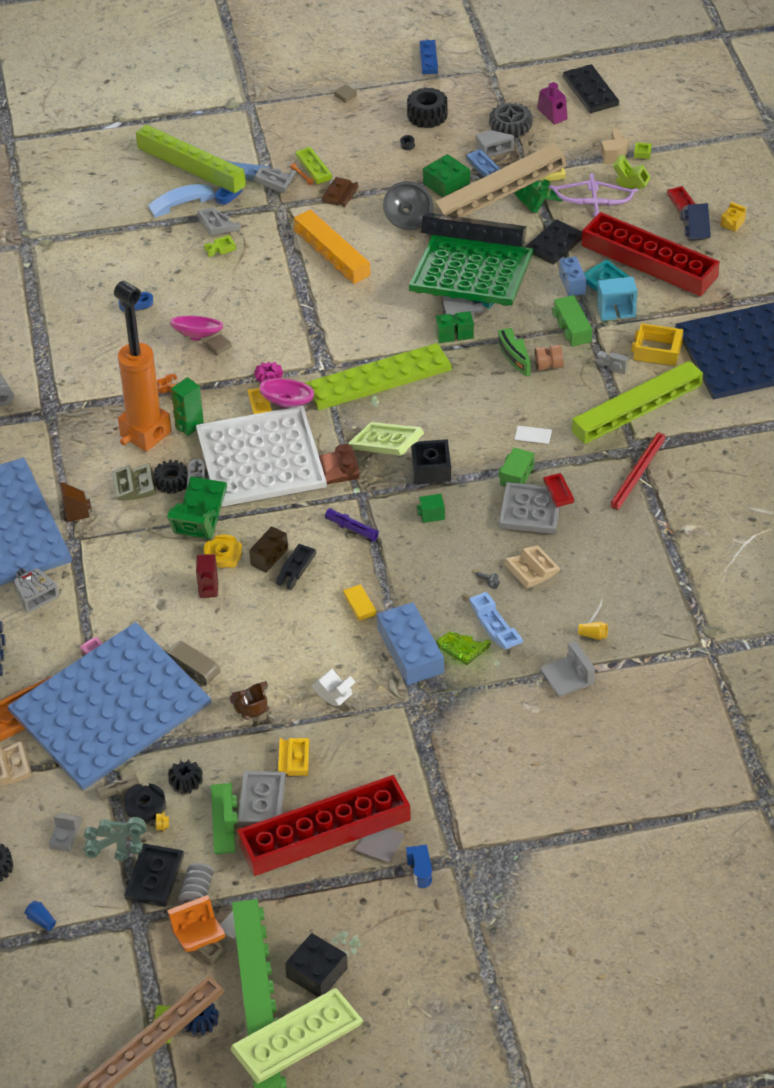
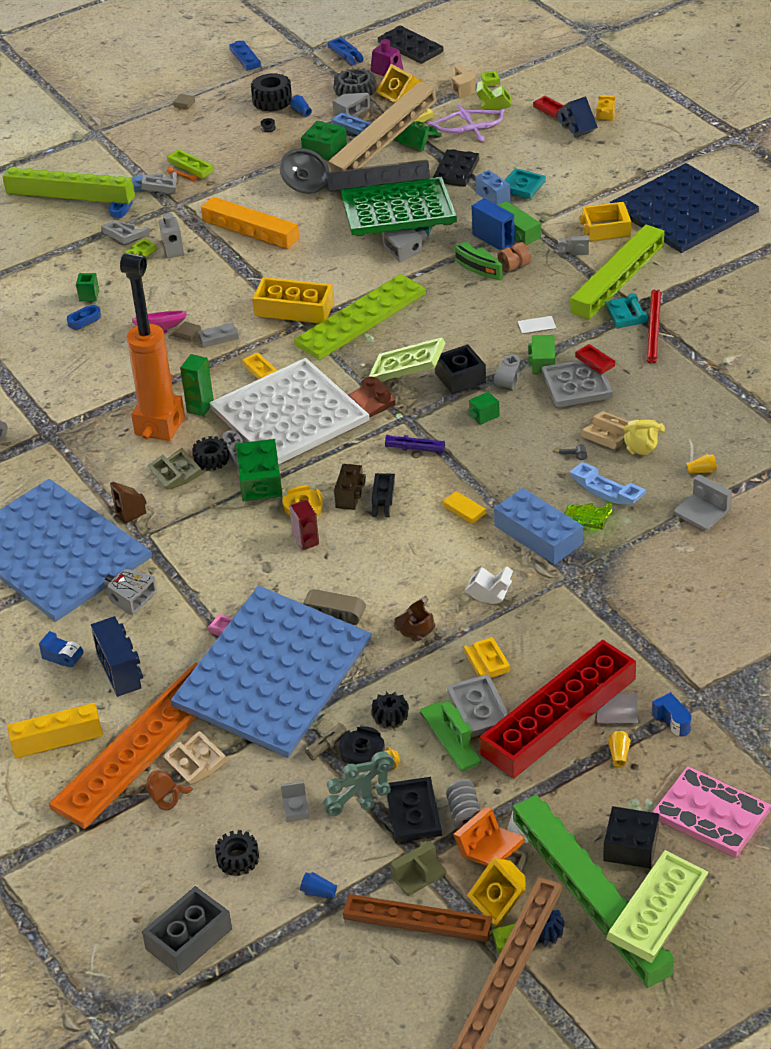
camera: 20 degrees left, 5 degrees down
(104, 973) = (417, 918): none -> dark orange plate
(128, 929) = (417, 869): none -> olive panel
(152, 272) = (87, 287): none -> green brick
(180, 195) = (74, 219): light blue slope -> none
(180, 971) = (498, 889): none -> yellow slope
(243, 356) = (218, 335): none -> light grey plate
(252, 233) = (170, 230): none -> light grey torso
(260, 375) = (258, 341): dark pink gear -> none
(286, 392) = (284, 351): dark pink dish -> none
(323, 342) = (293, 300): none -> yellow brick
(340, 192) = (228, 179): reddish brown plate -> none
(356, 880) = (619, 747): none -> yellow cone
(401, 966) = (712, 811): none -> bright pink plate
(446, 127) = (300, 105): none -> blue cone
(448, 324) = (403, 255): green piece -> none
(474, 478) = (508, 372): none -> light grey piece
(523, 78) = (345, 50): none -> blue hinge
(546, 317) = (493, 224): none -> blue brick
(551, 130) = (396, 83): none -> yellow slope
(552, 584) = (642, 436): none -> light yellow helmet
(615, 447) = (621, 314): none -> teal plate
(617, 292) = (551, 190): medium azure piece -> none
(650, 253) = (552, 152): red brick -> none

